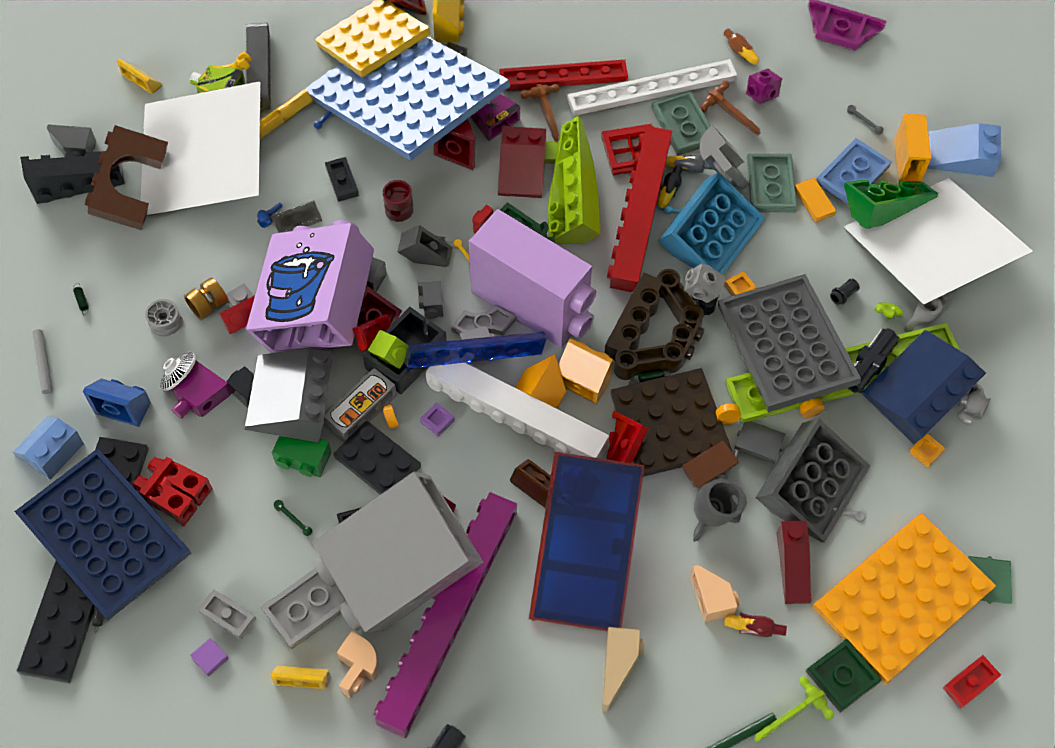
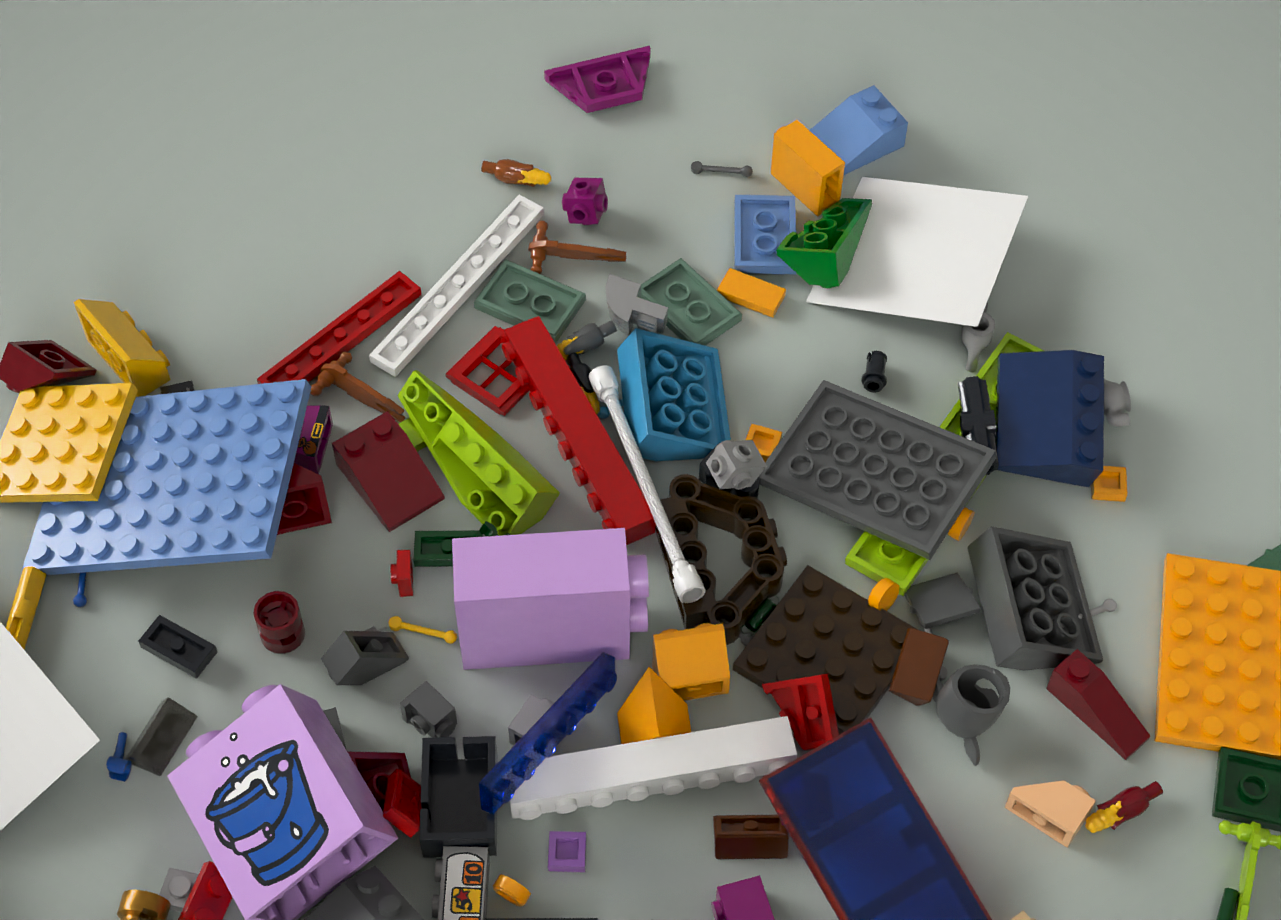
camera: 40 degrees left, 5 degrees down
(389, 349) = (449, 807): lime brick -> none
(496, 319) = (503, 705): light grey tile -> none
(619, 325) = (686, 579): none -> white hose
(888, 310) = (938, 358): lime plant -> none

